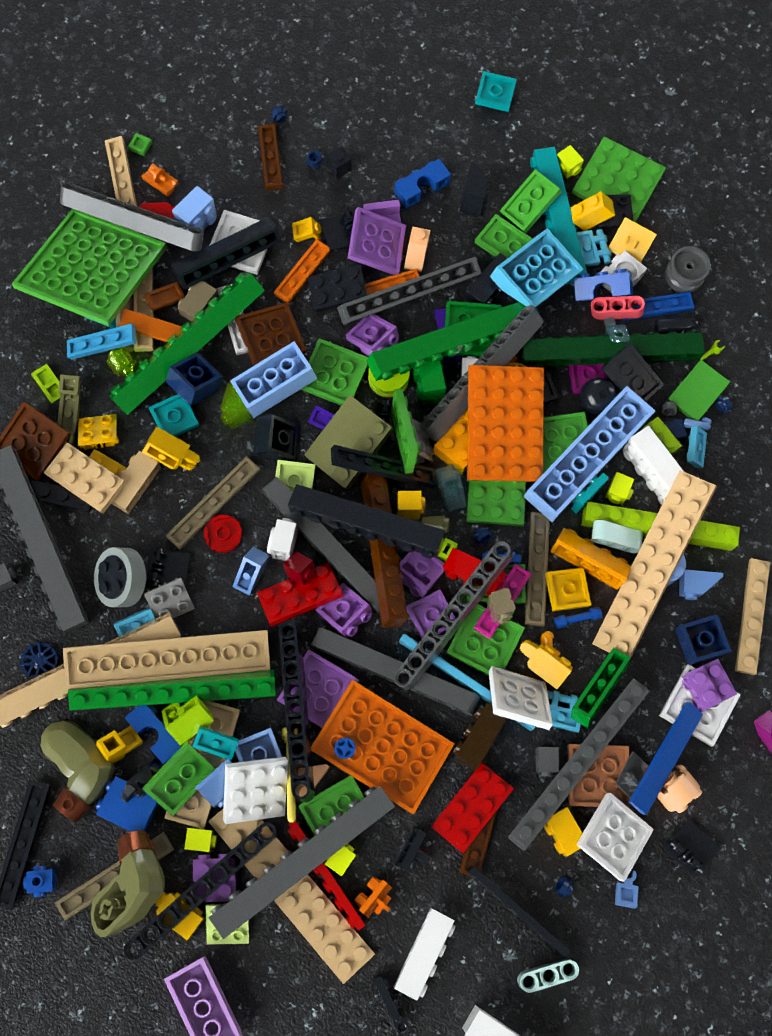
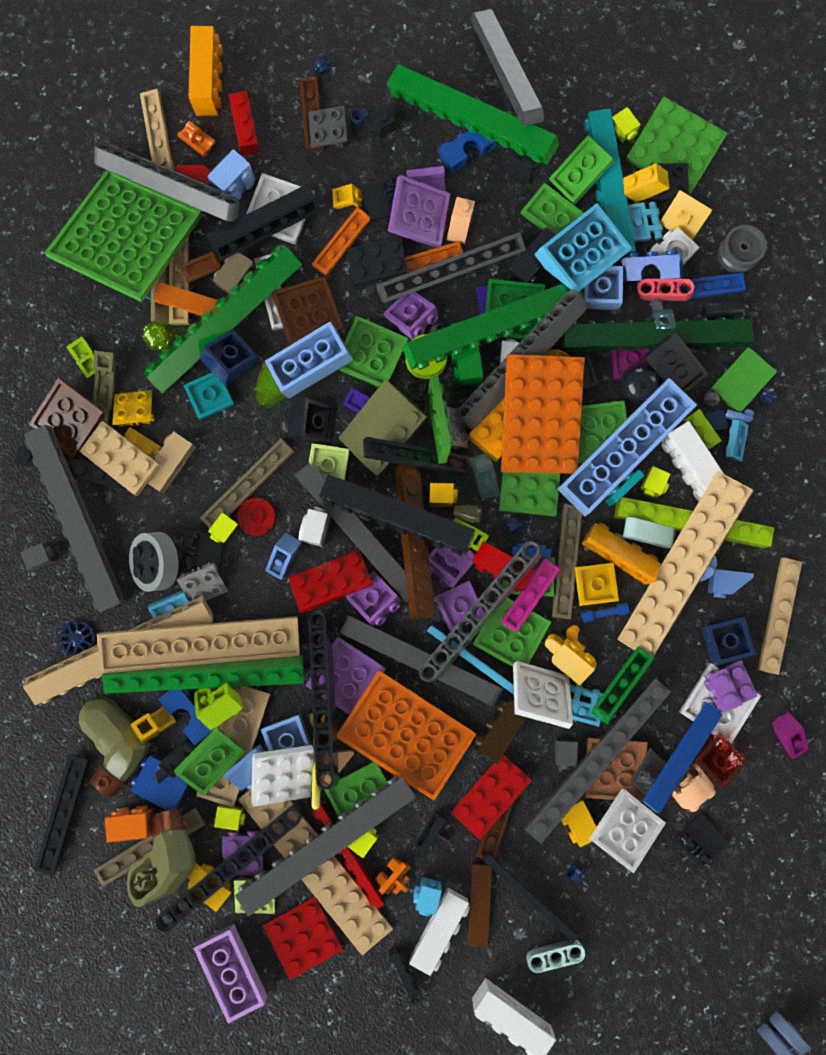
camera: 10 degrees right, 10 degrees up
(47, 879) = (79, 851): blue brick -> none
(94, 849) = (129, 824): none -> orange brick
(101, 341) = (136, 315): dark azure plate -> none
(140, 144) = (176, 97): bright green tile -> none
(168, 119) = (205, 71): none -> light orange brick
(170, 450) = (204, 432): yellow hinge -> none
(189, 544) = (222, 528): none -> neon yellow brick
(206, 165) = (244, 123): none -> red brick
(215, 743) = (244, 729): teal plate -> none
(279, 967) = (302, 937): none -> red plate
(287, 167) = (328, 127): none -> dark grey hinge
(299, 568) = (330, 557): dark red brick -> none
(347, 747) = (368, 742): blue wheel -> none
(410, 914) = (427, 896): none -> medium azure brick
(425, 152) = (473, 114): none -> green brick
(456, 110) = (507, 67): none -> beam
(465, 924) = (479, 905): none -> reddish brown tile
(495, 91) = (551, 43): teal plate -> none
(501, 606) = (528, 604): dark tan brick -> none
(559, 309) = (605, 290): none -> light blue brick
(627, 893) = (635, 882): medium blue plate -> none
(704, 760) = (720, 760): none -> clear red slope
(714, 350) = (762, 336): lime hand -> none

